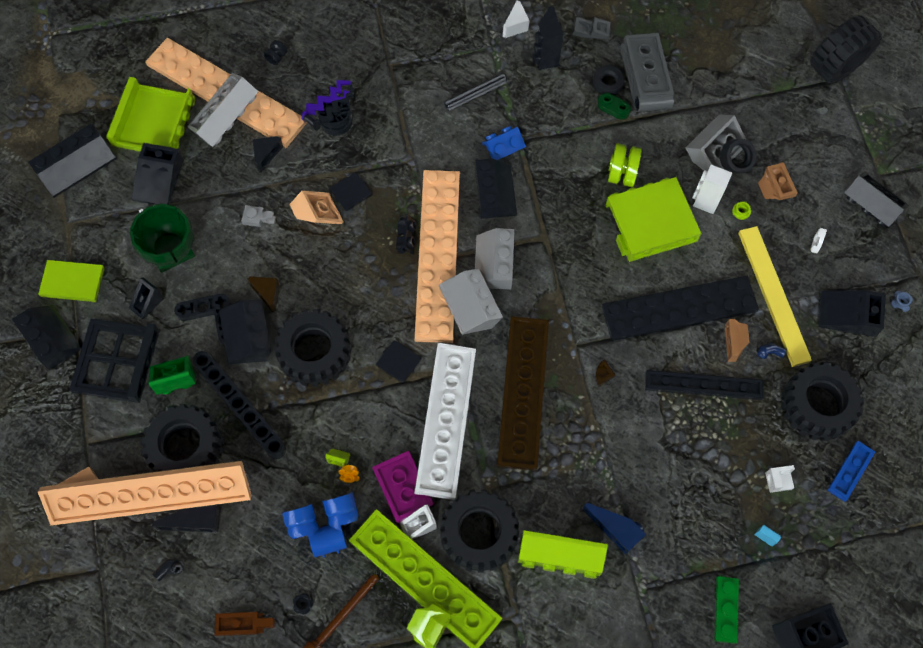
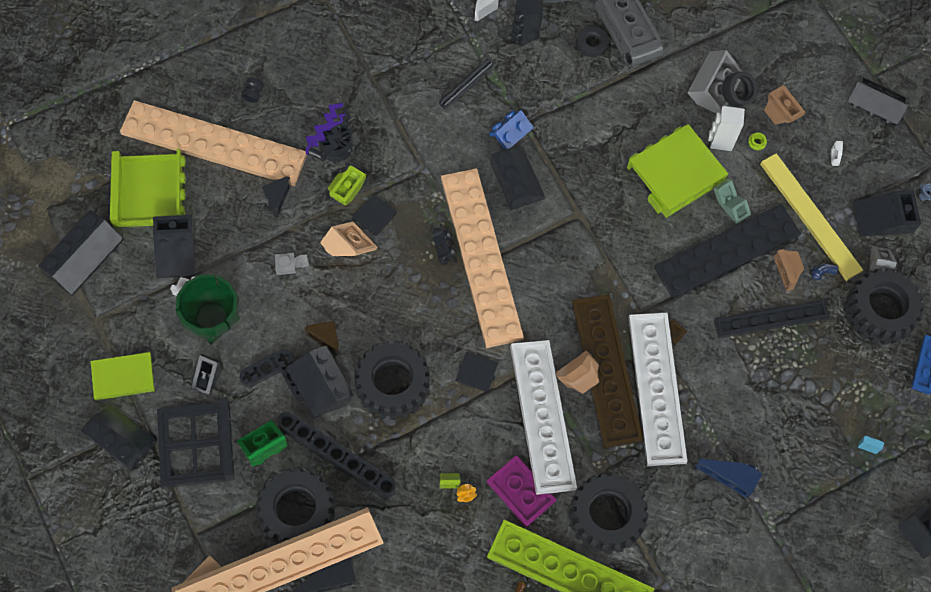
camera: 20 degrees left, 0 degrees up
(223, 109) = (220, 162): light grey slope -> none
(326, 538) = (465, 560): blue piece -> none
(333, 158) = (346, 185): none -> lime slope
(419, 523) = (548, 521): white slope -> none
(471, 302) = (531, 295): light grey slope -> none
(495, 257) = (539, 247): light grey slope -> none
(495, 387) = (580, 373): none -> medium nougat slope
(562, 553) = (691, 513): lime slope -> none
(567, 424) = (657, 389): none -> white plate
(613, 106) = (605, 66): dark green plate -> none
(624, 165) = (636, 124): lime wheel -> none
(699, 265) = (733, 205): none -> sand green slope
(726, 610) = (853, 523): green plate -> none
(780, 478) = (866, 389): white panel -> none
(834, 354) = (881, 258): none -> light grey slope

